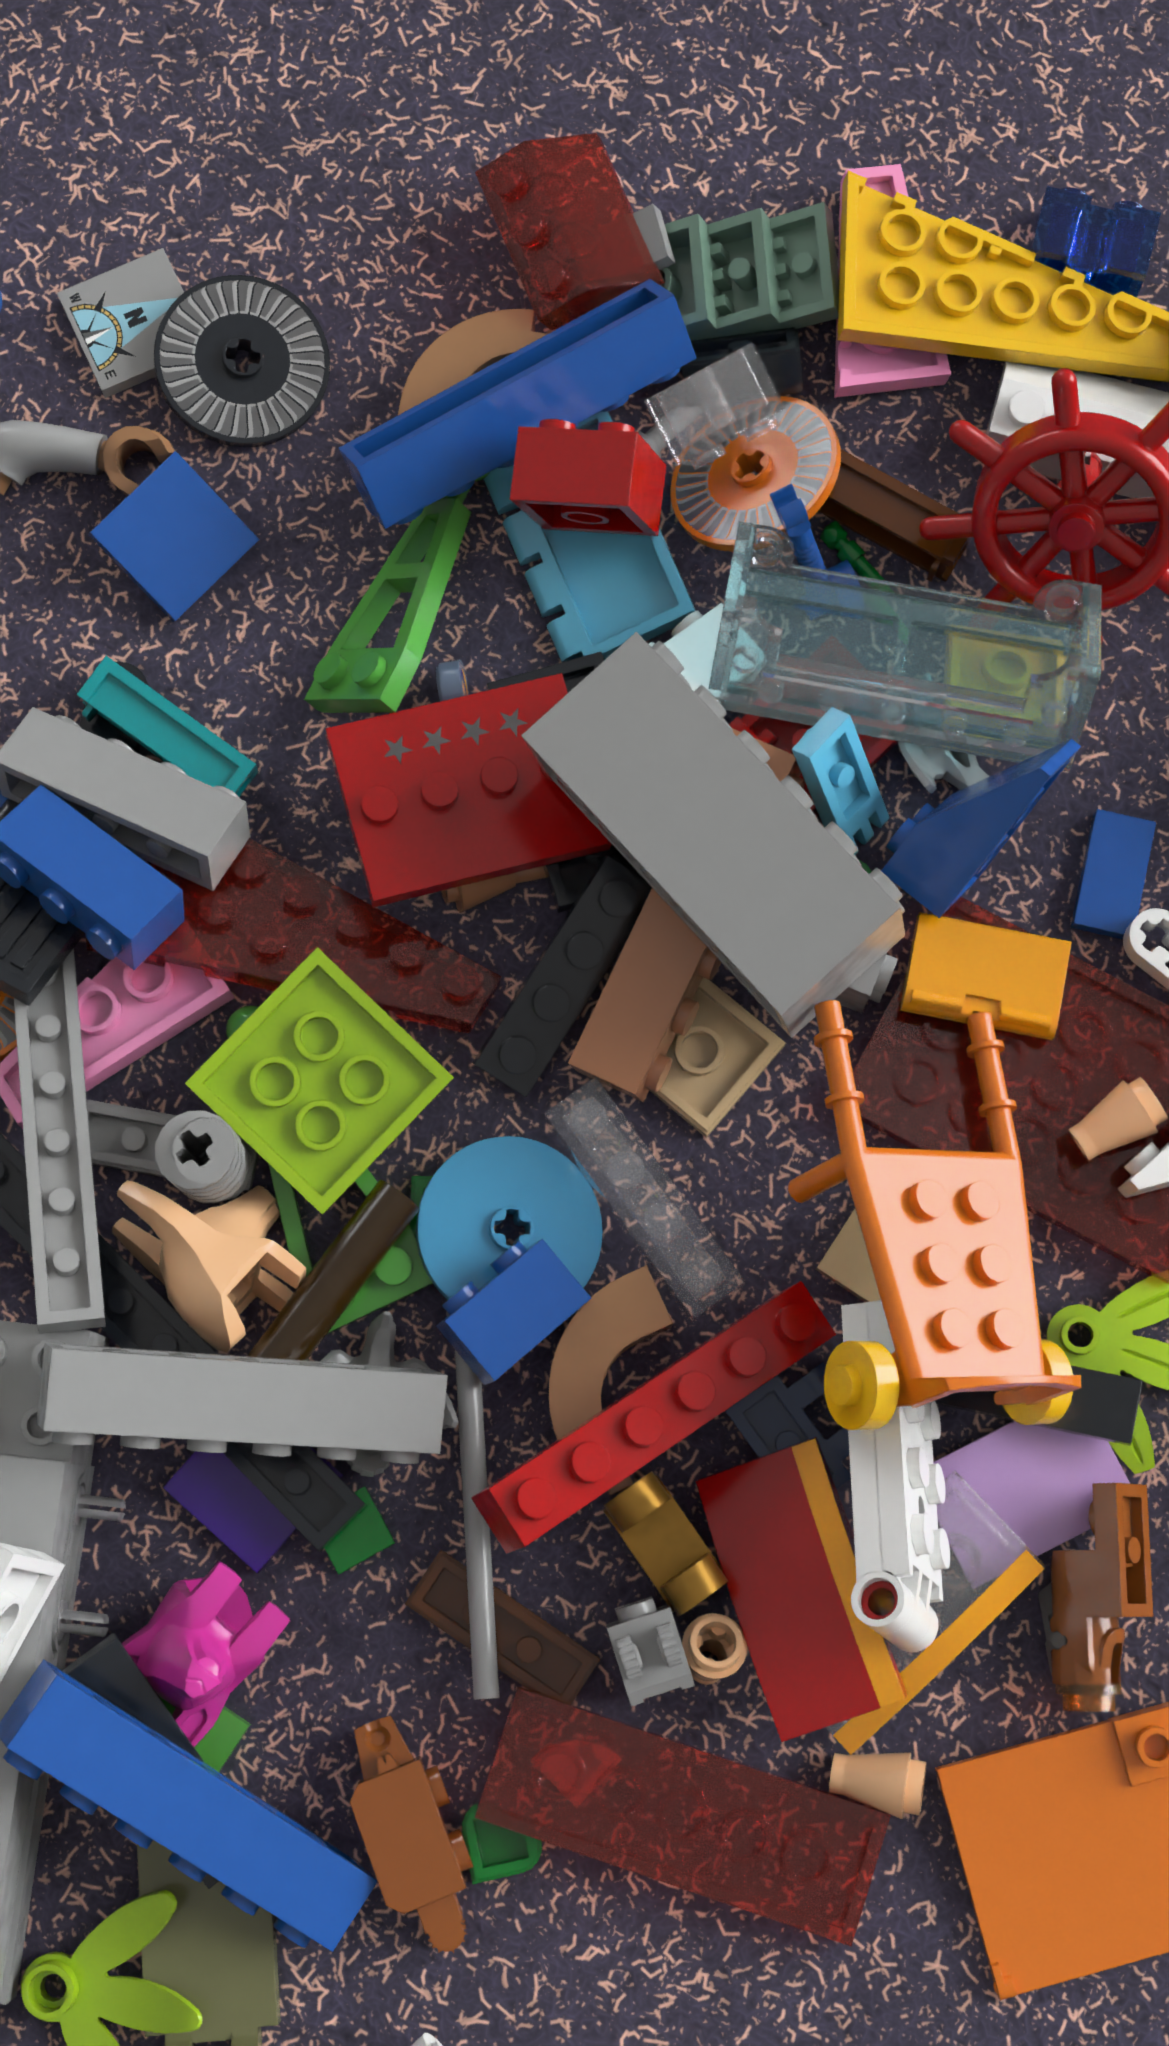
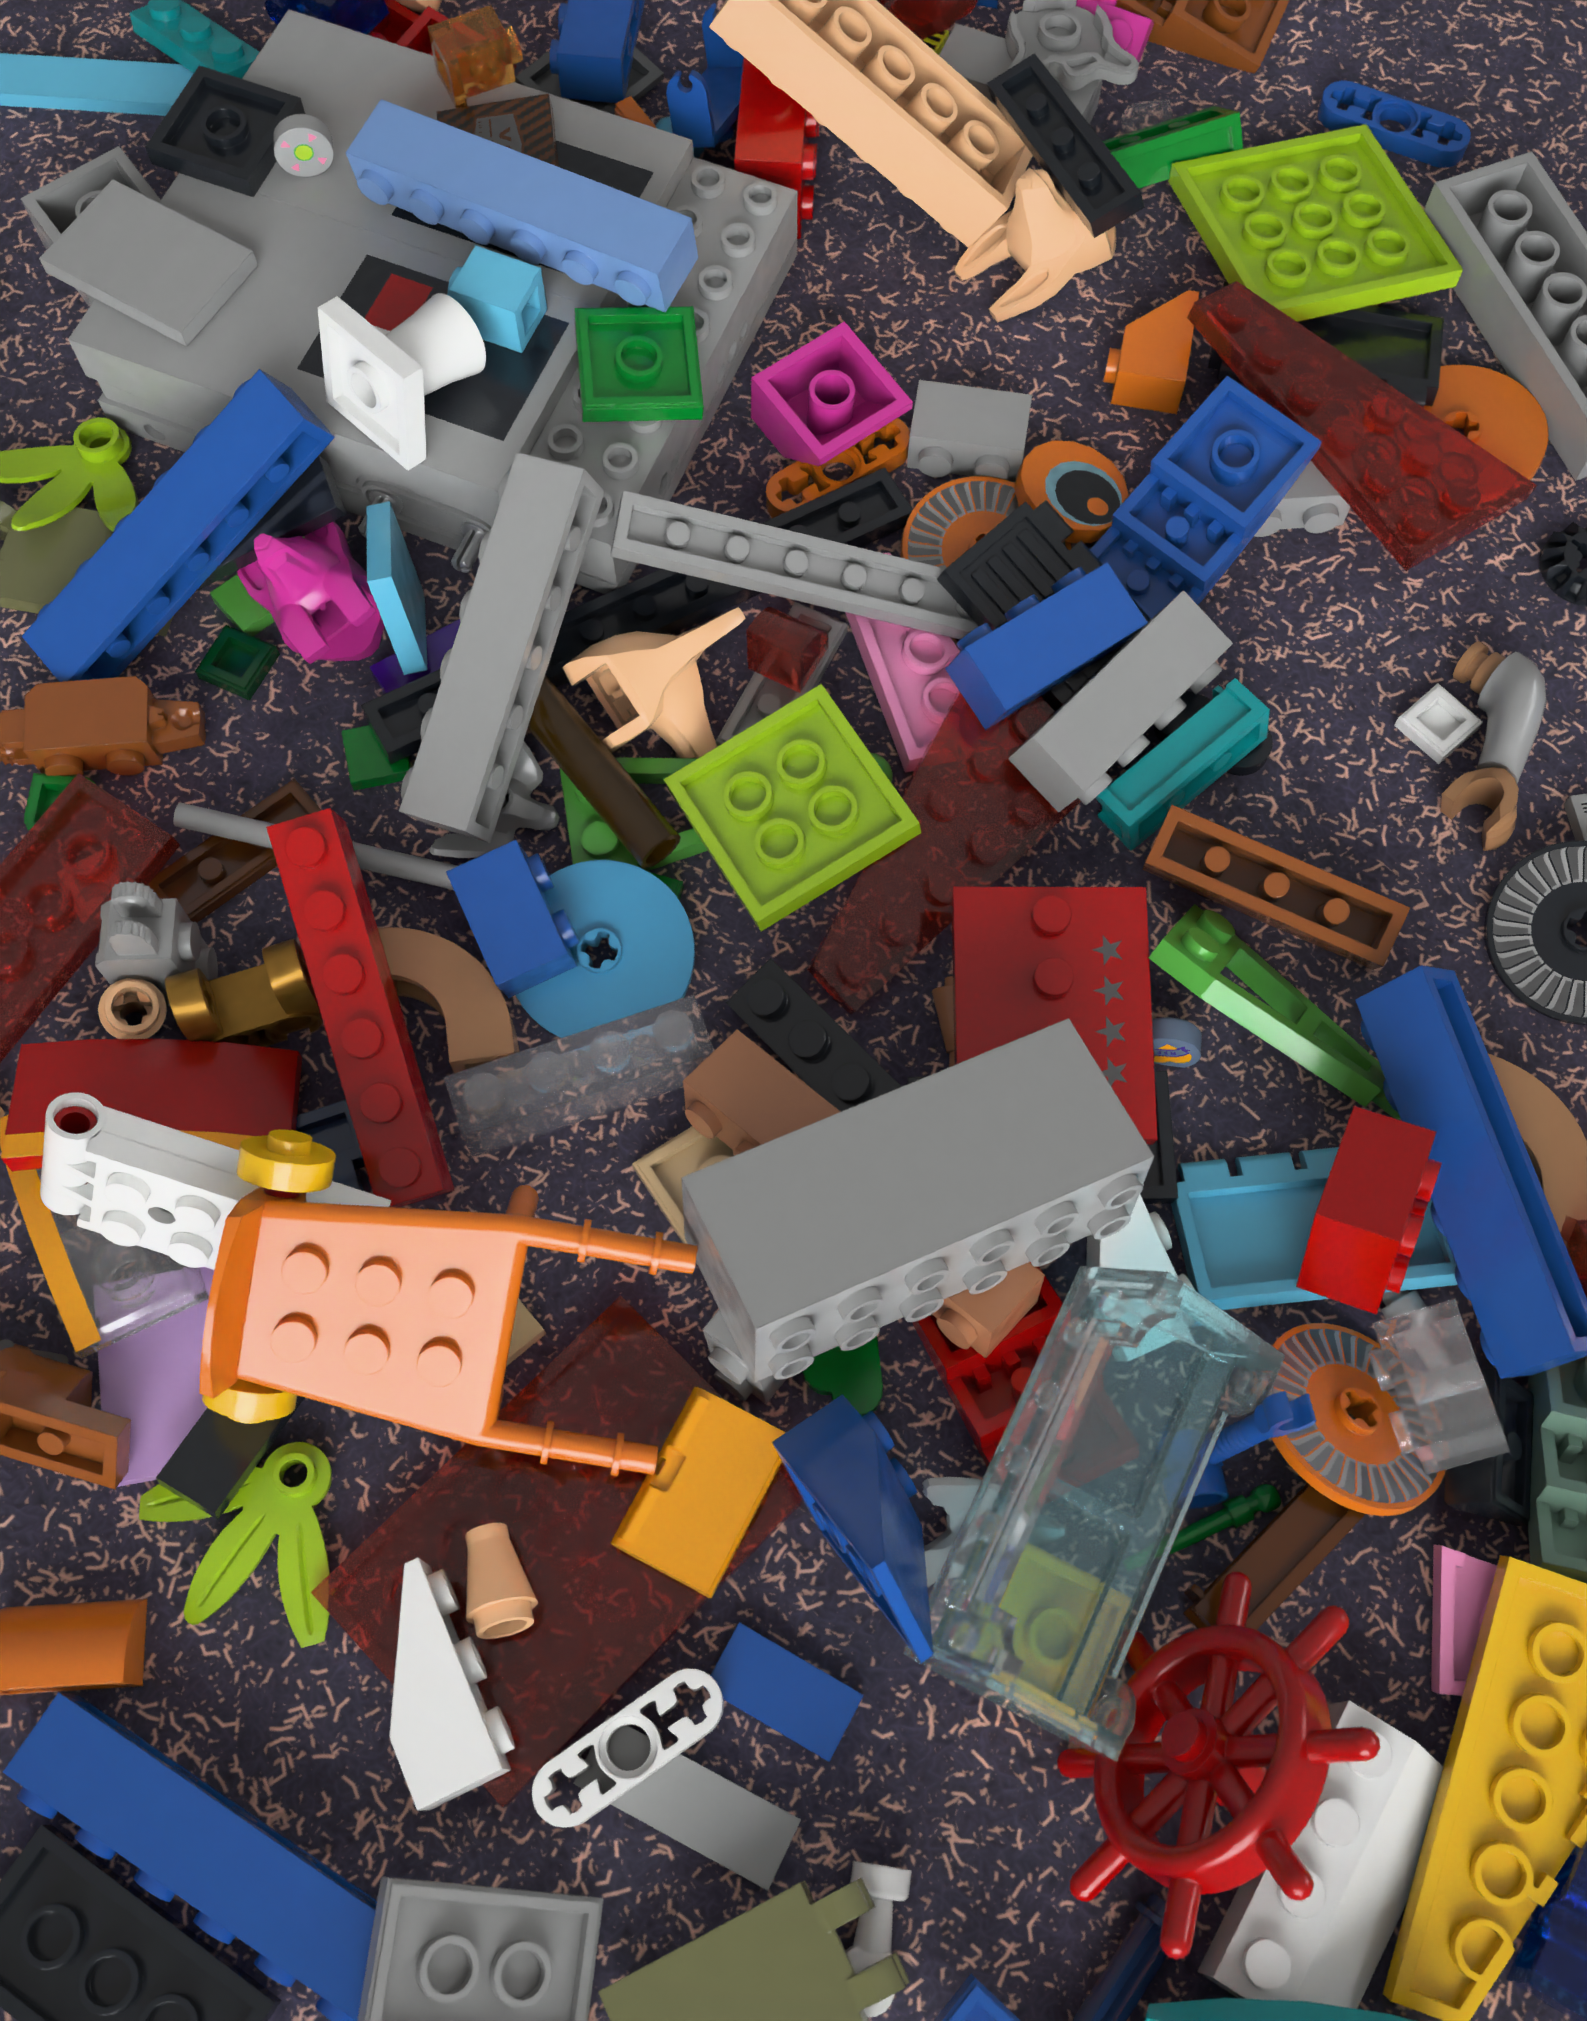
camera: 105 degrees right, 10 degrees down
(48, 519) = (1438, 723): none -> white tile
(131, 1139) = (784, 648): none -> clear red brick
(174, 536) = (1394, 820): blue tile -> none
(177, 1556) = (396, 588): none -> medium azure tile
(178, 1160) = (743, 677): light grey piece -> none
(280, 627) = (1276, 888): none -> dark orange brick
(283, 1721) = (237, 662): none -> dark green tile
(840, 776) = (960, 1387): medium azure hinge -> none

